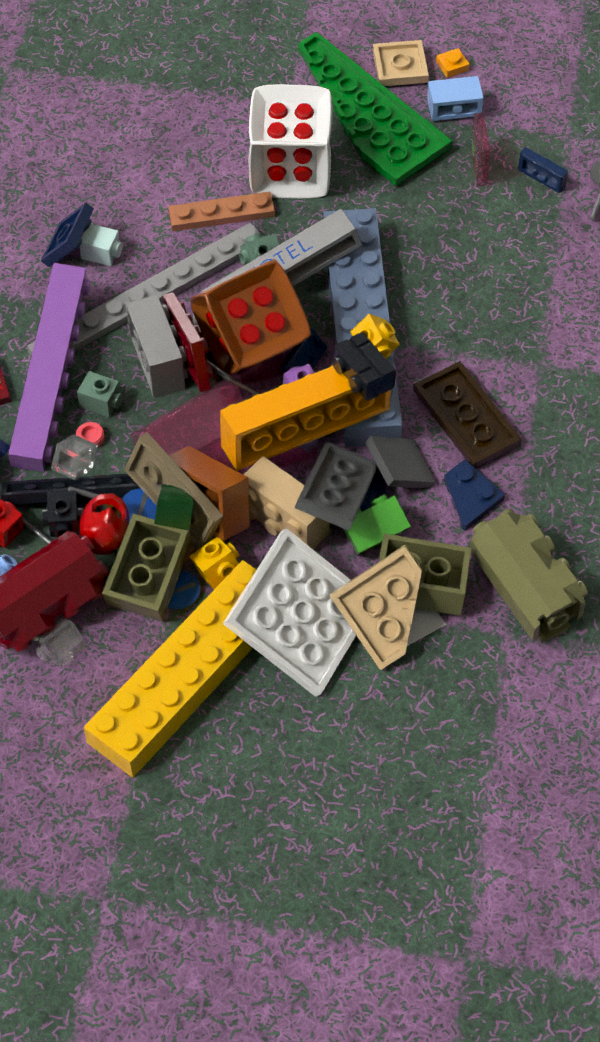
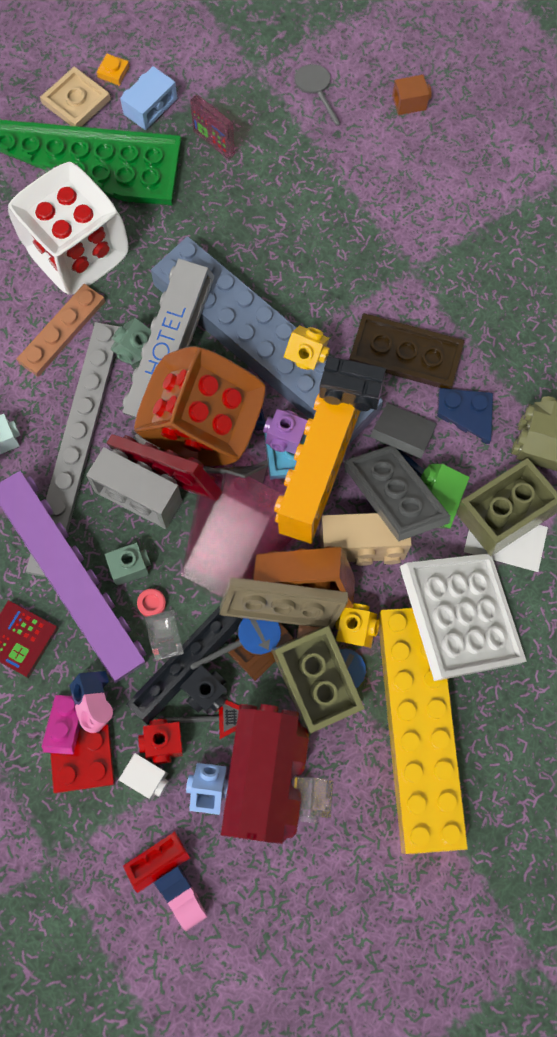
camera: 45 degrees left, 15 degrees up
(104, 527) = (264, 685): red piece -> none
(174, 508) = (304, 619): dark green brick -> none
(382, 605) = (517, 557): tan plate -> none
(542, 170) = (268, 110): dark blue plate -> none

